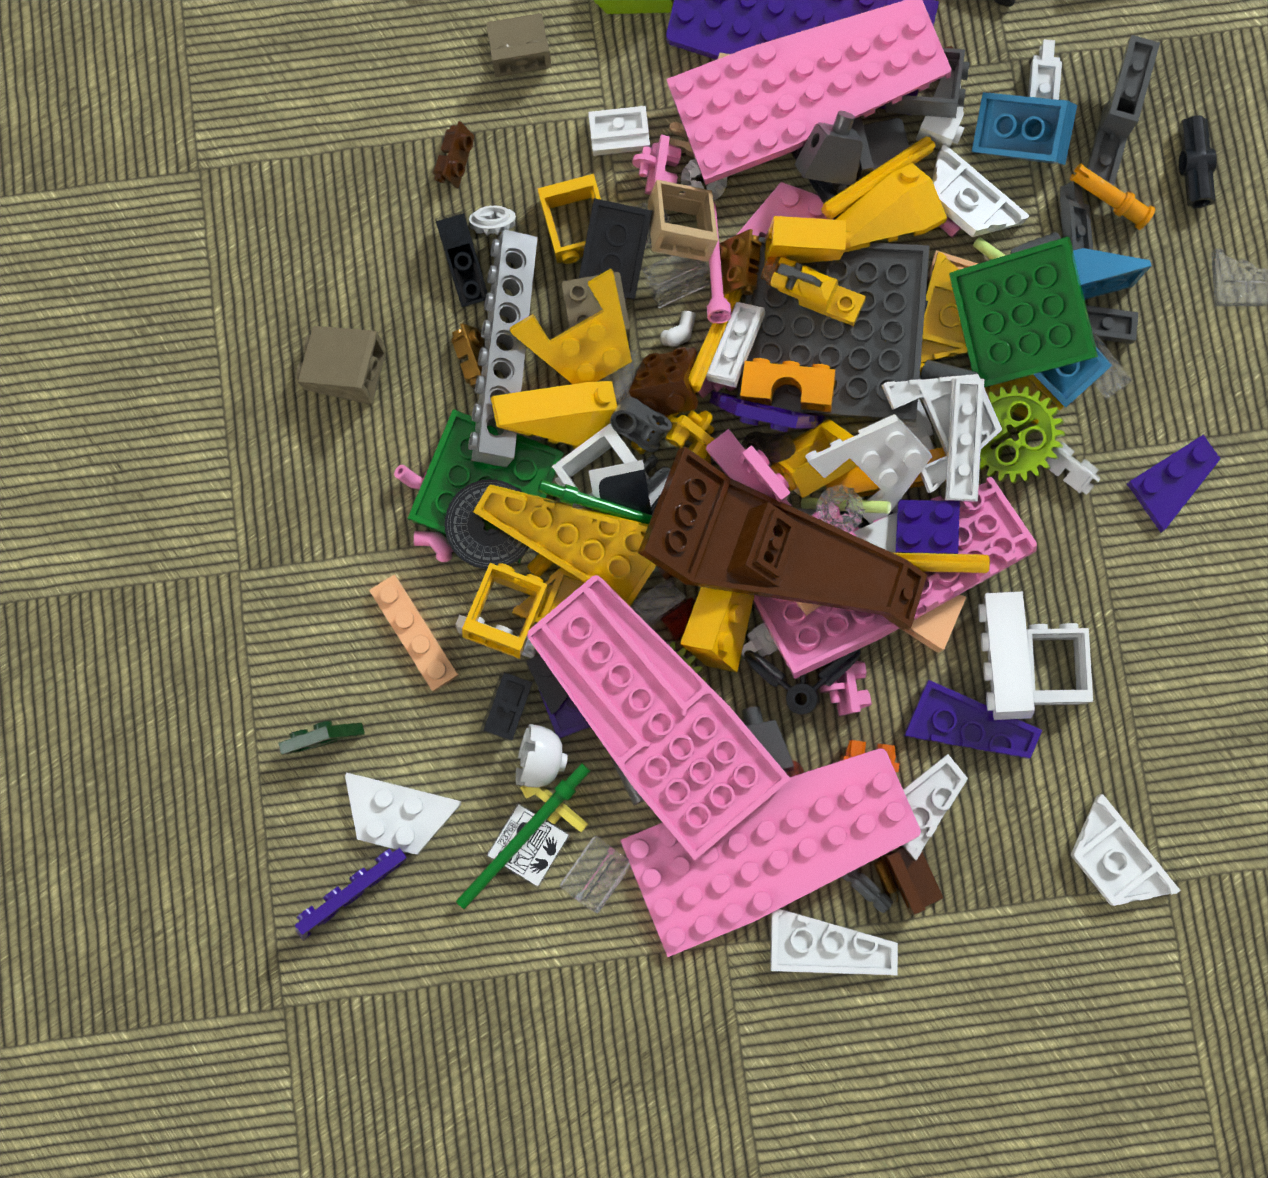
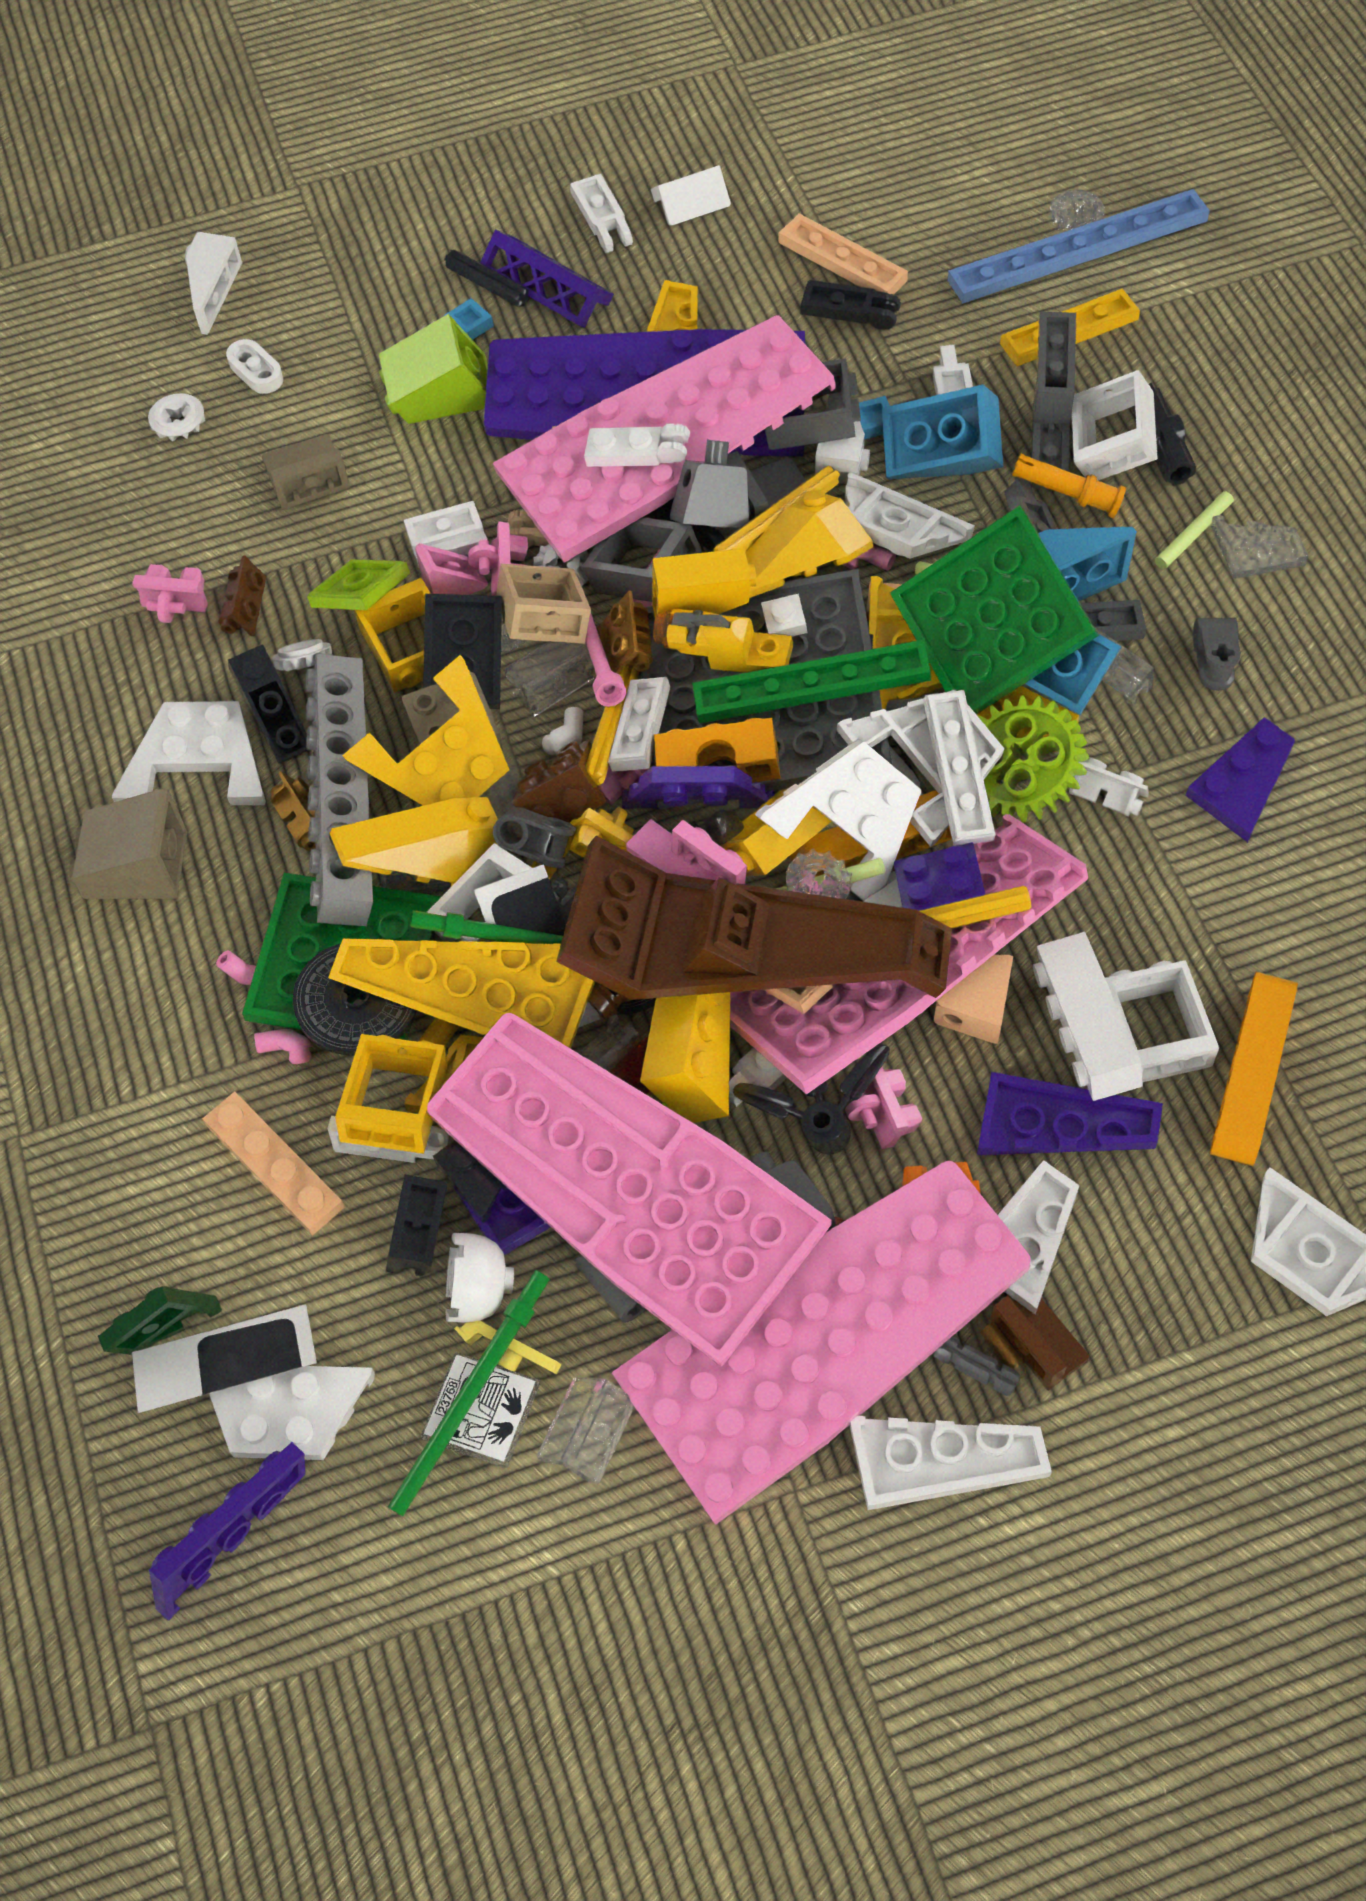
camera: 10 degrees left, 20 degrees down
(361, 772) = (223, 1358): none -> sticker
(397, 142) = (169, 594): none -> bright pink hips
(401, 273) = (196, 740): none -> white wing
(544, 167) = (358, 584): none -> lime tile
(615, 170) = (448, 572): none -> bright pink slope
(780, 98) = (636, 445): none -> white hinge
(787, 205) = (616, 580): none -> dark grey window
(864, 276) = (784, 616): none -> white plate
(872, 340) = (811, 681): none -> green plate
(974, 92) = (872, 416): none -> dark azure plate
(1114, 715) = (1254, 1069): none -> light orange beam
(1161, 178) = (1123, 450): none -> white window
(1171, 34) = (1091, 320): none -> yellow tile
(1184, 368) = (1216, 651): none -> dark grey piece
(1198, 254) = (1181, 542): none -> yellowish green bar

